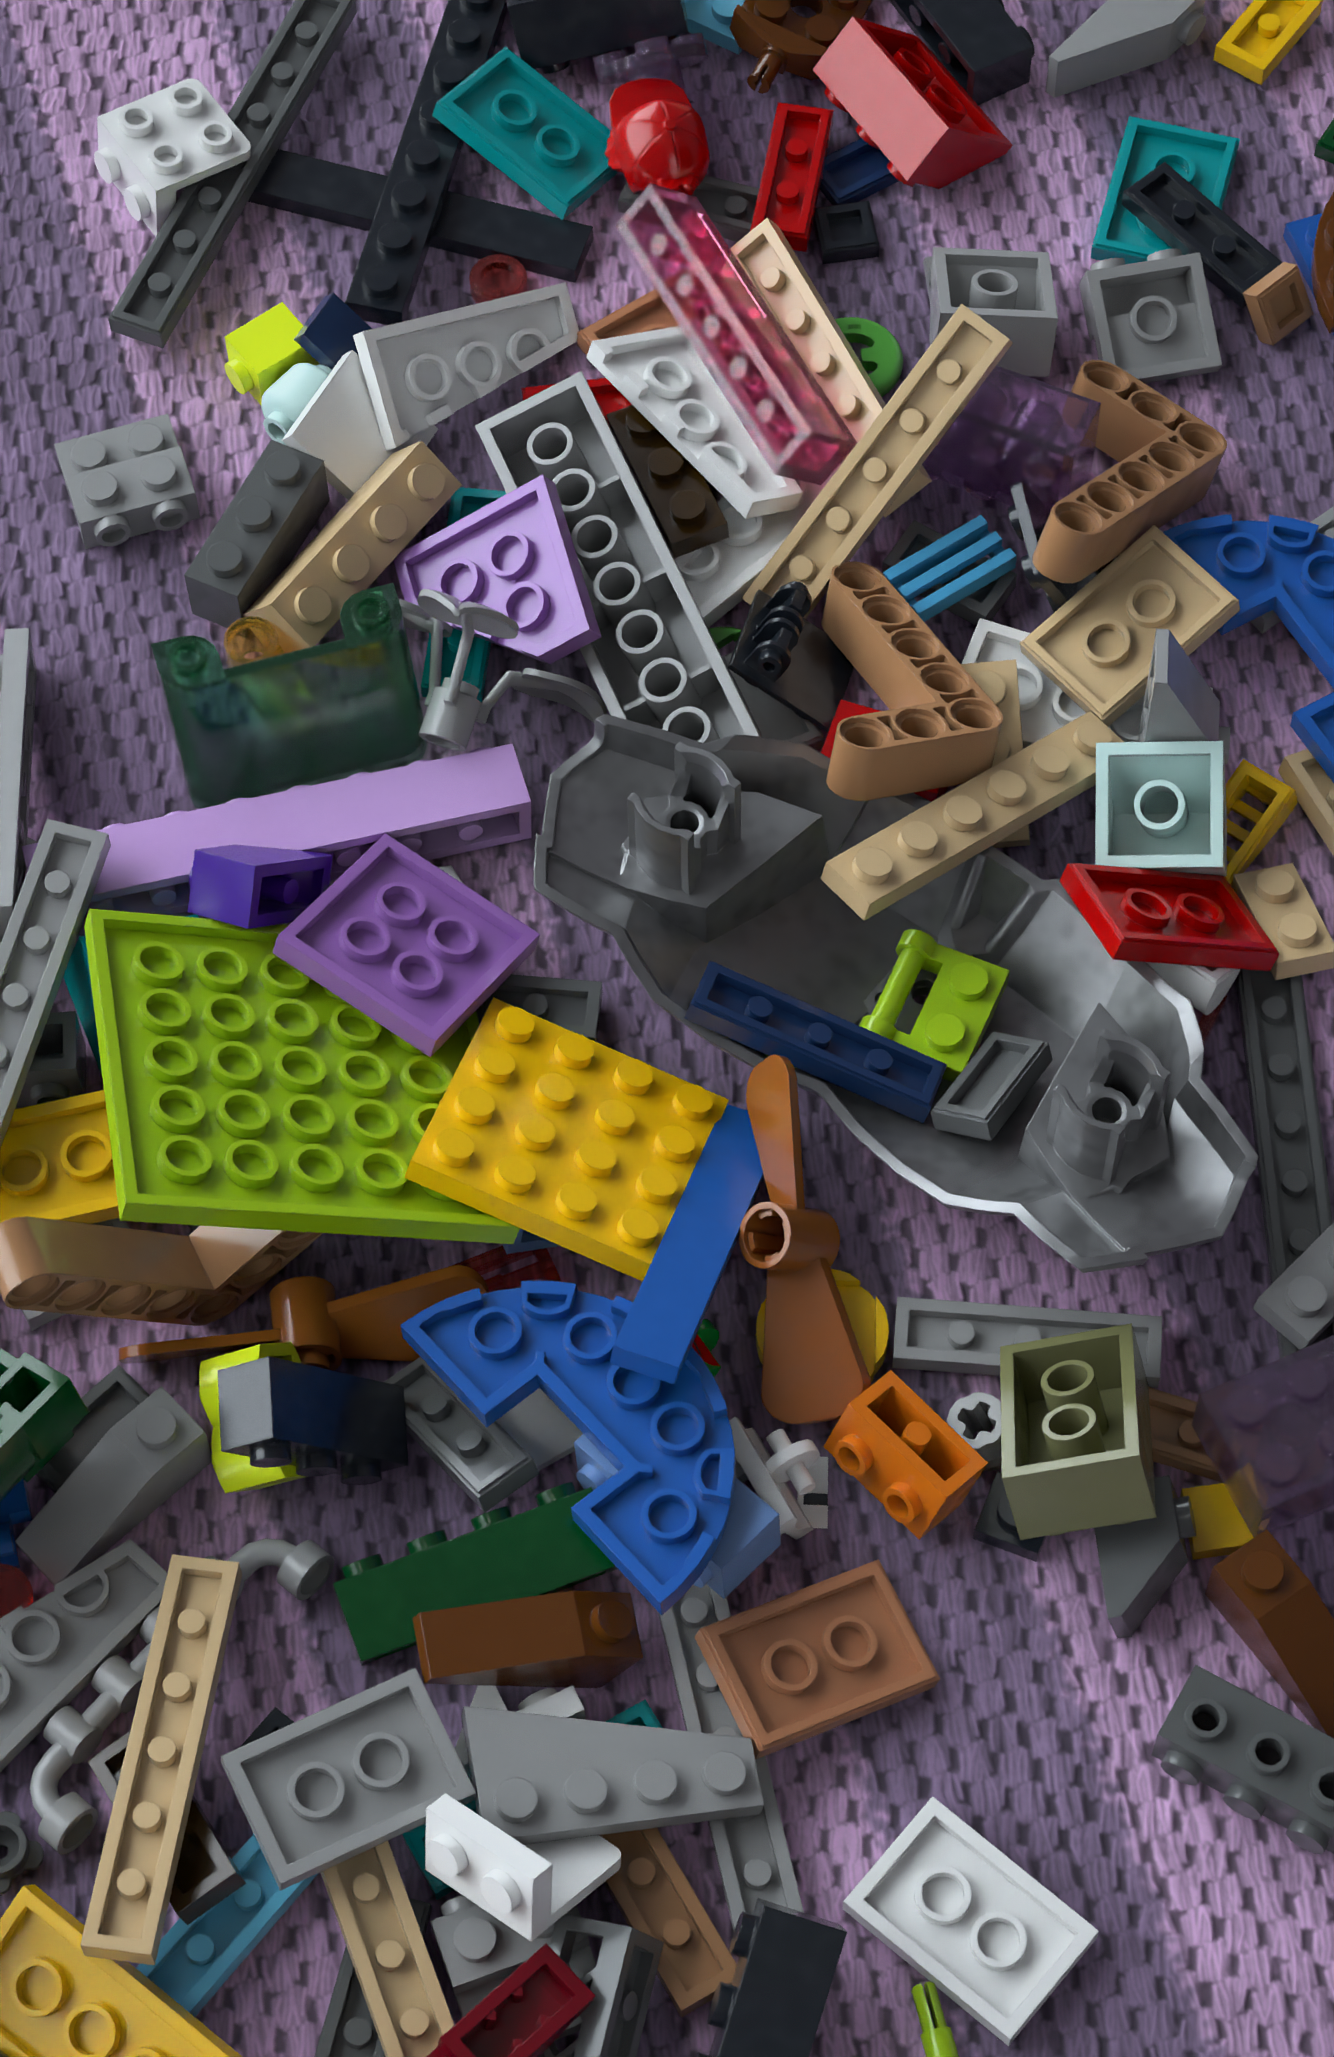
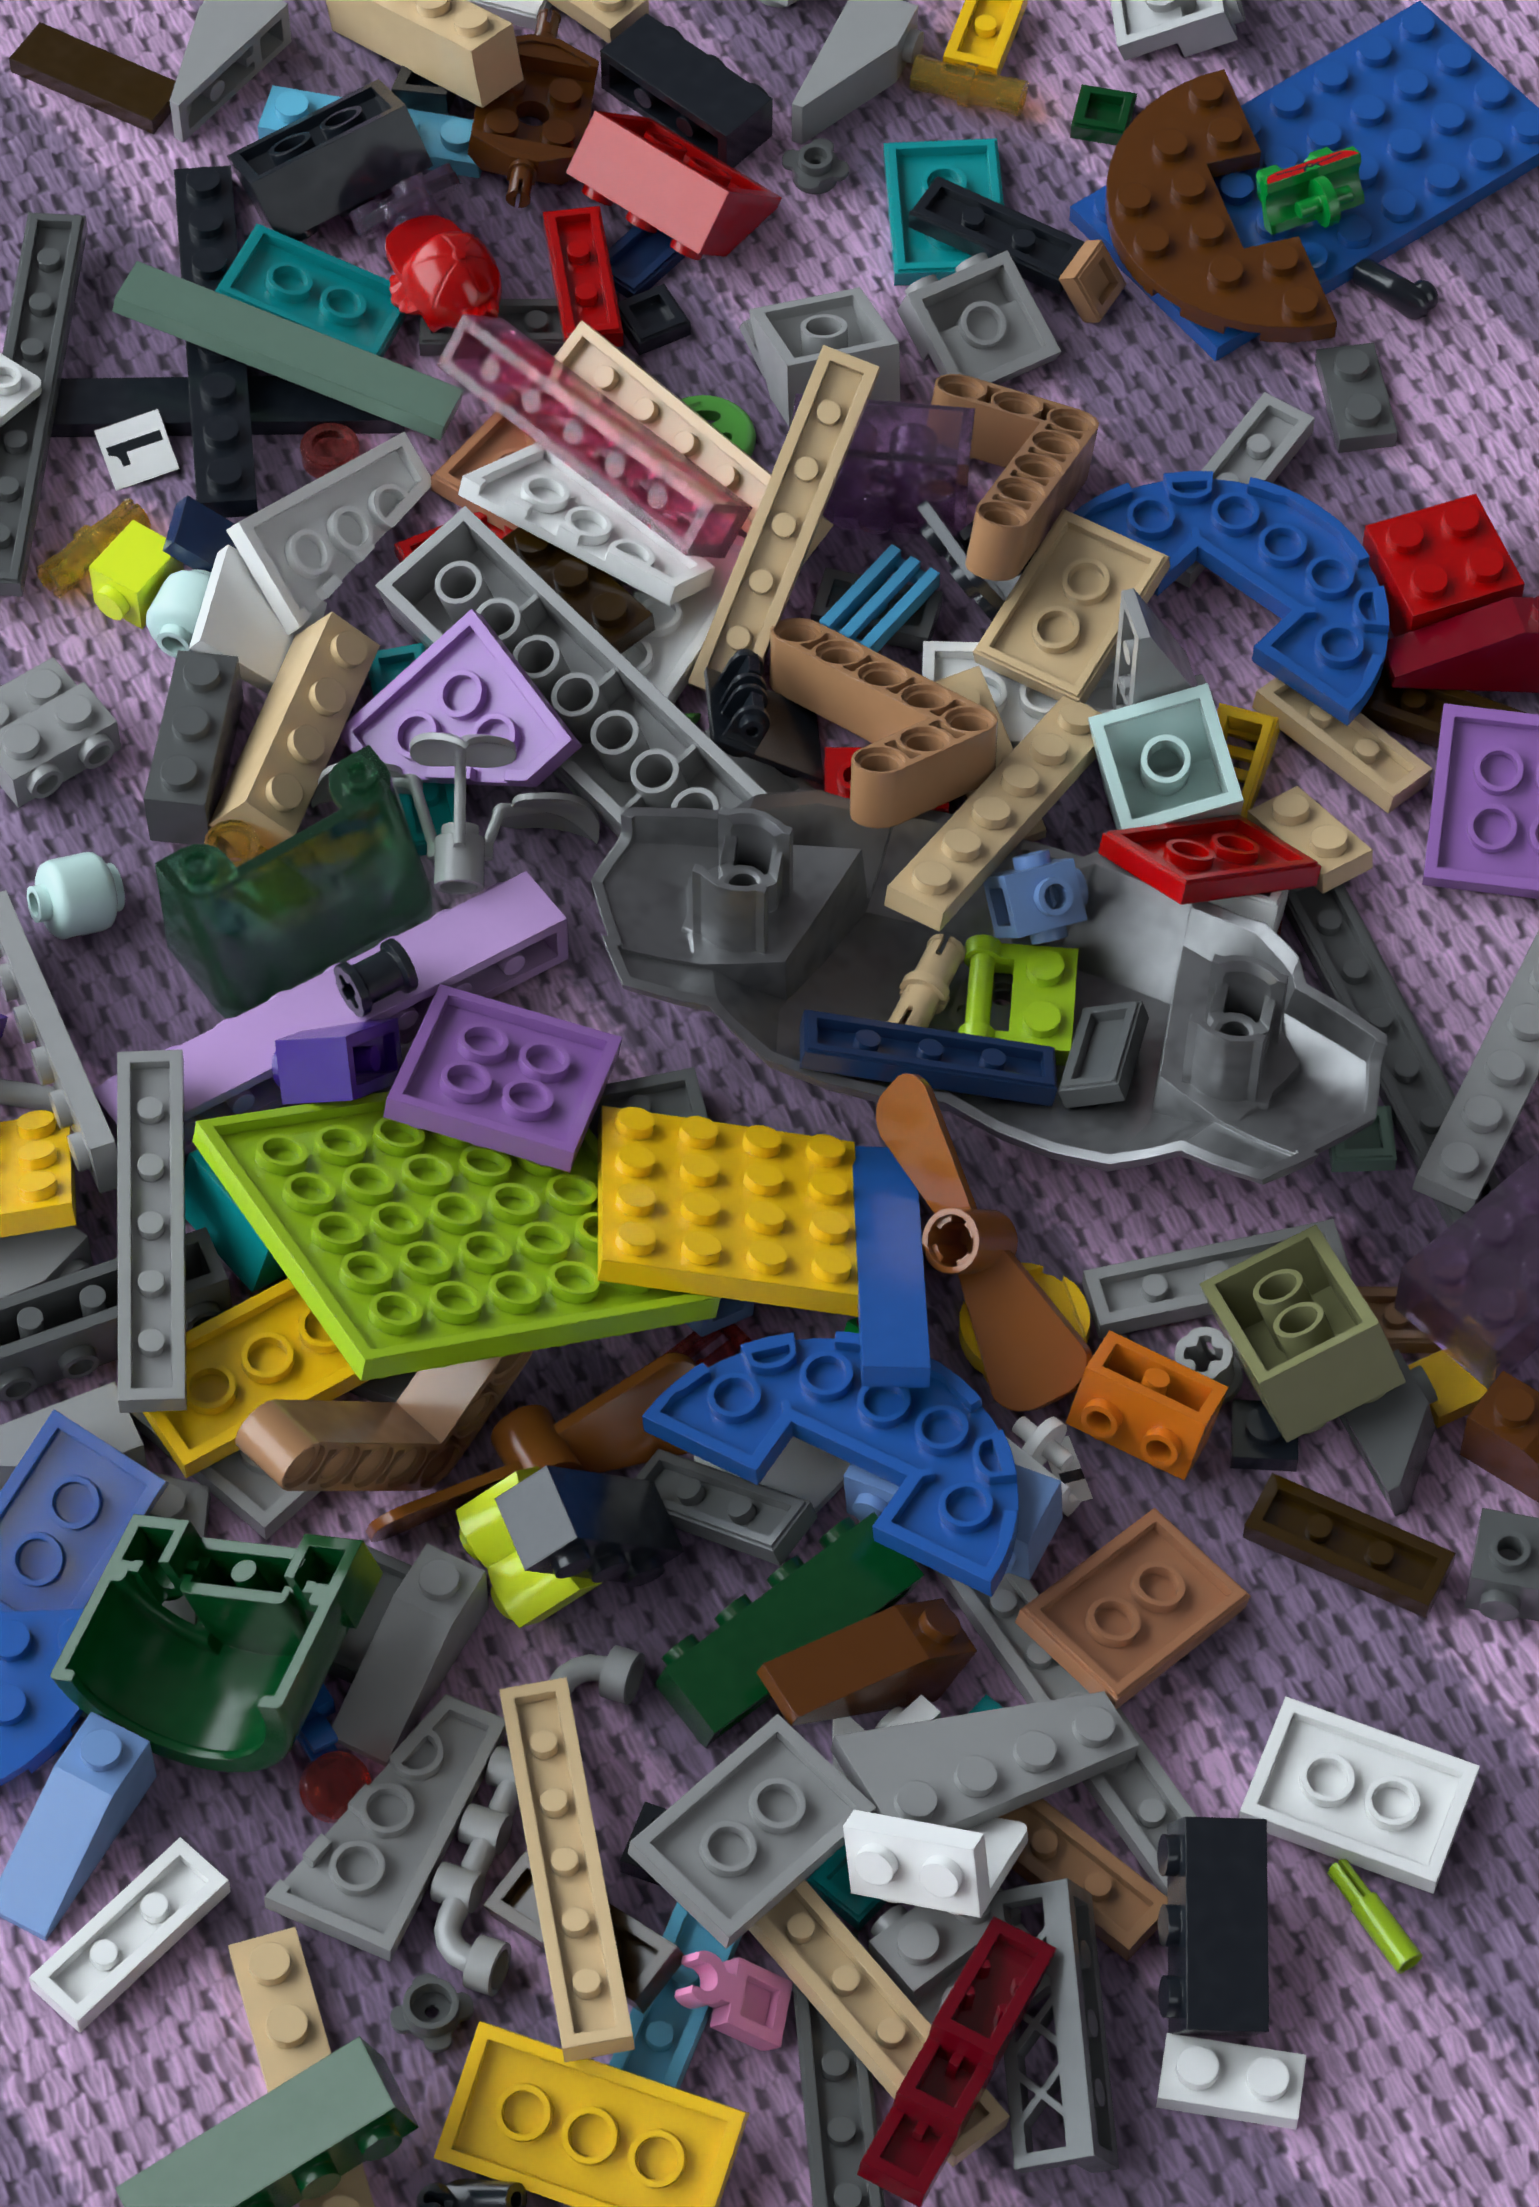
camera: 20 degrees left, 5 degrees down
(97, 649) = (76, 895): none -> light aqua head
(210, 331) = (73, 561): none -> clear yellow pin
(292, 1938) = (744, 1997): none -> bright pink plate
(321, 235) = (136, 449): none -> white sticker
(321, 812) = (376, 977): none -> black bush
(486, 176) = (288, 350): none -> sand green tile
(847, 968) = (927, 988): none -> tan pin
(962, 900) = (1036, 897): none -> medium blue brick
(1056, 134) = (815, 166): none -> dark grey plate
(1056, 1657) = (1349, 1545): none -> dark brown plate
(1232, 79) = (968, 85): none -> clear yellow pin
(1234, 1251) = (1369, 1149): none -> sand green tile

